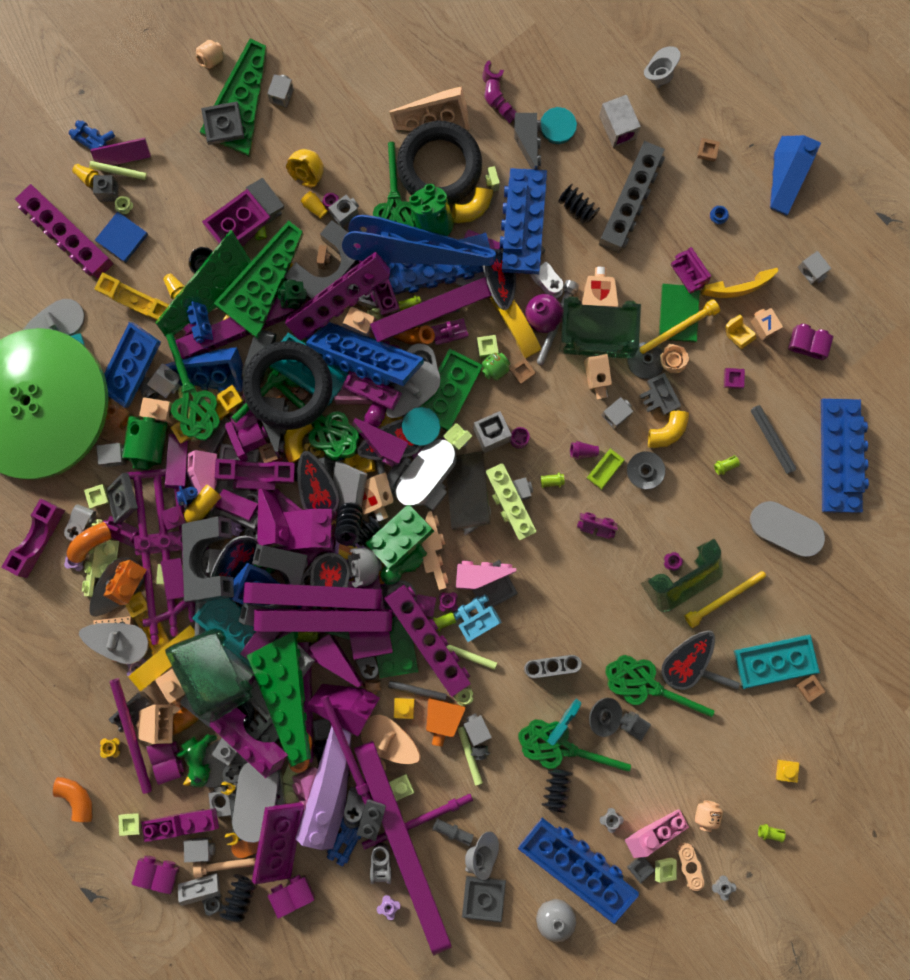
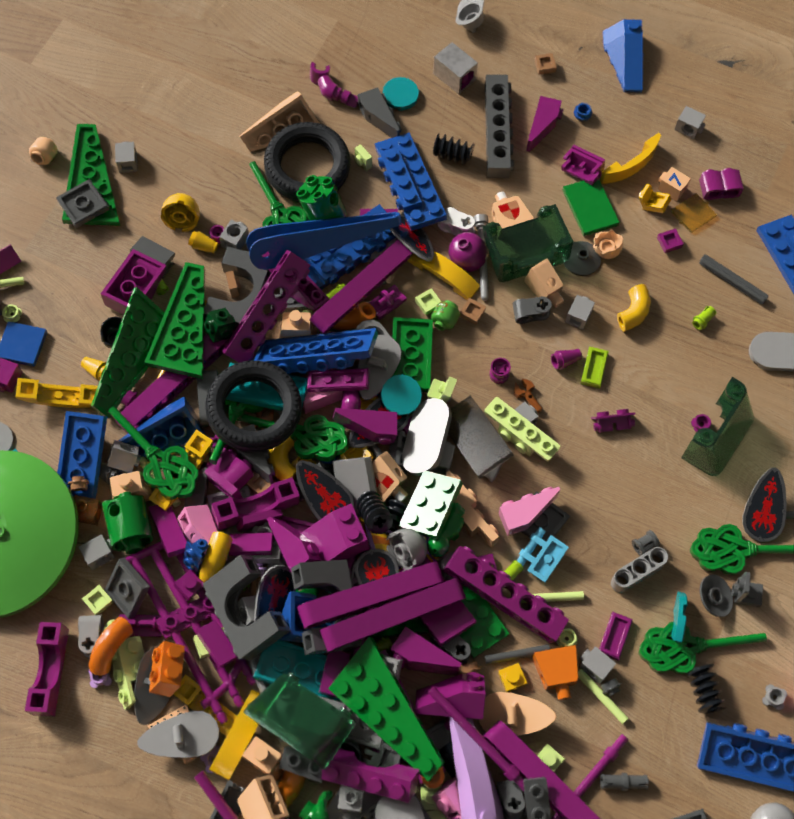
camera: 25 degrees left, 15 degrees down
(116, 390) = (78, 483): none -> medium nougat plate
(199, 315) = (132, 380): blue hinge -> none
(443, 601) = (505, 546): magenta plate -> none
(475, 208) = (359, 186): yellow cylinder -> none
(482, 857) = (666, 792): light grey piece -> none
(492, 432) = (472, 373): flat silver piece -> none
(505, 711) = (615, 635): none -> magenta tile
(534, 470) = (527, 394): none -> dark orange bar
(552, 480) = (550, 396): lime pin -> none
(569, 646) = (645, 543): none -> dark grey bush
(571, 392) = (530, 309): none -> dark grey piece
(652, 463) = (636, 344): dark grey dish -> none
(661, 395) = (611, 281): dark grey hinge -> none
(678, 209) = (545, 120): none -> magenta slope
(694, 618) = (749, 467): yellow piece -> none
(710, 309) = (618, 189): yellow piece -> none
(771, 359) = (693, 213): none -> clear yellow piece

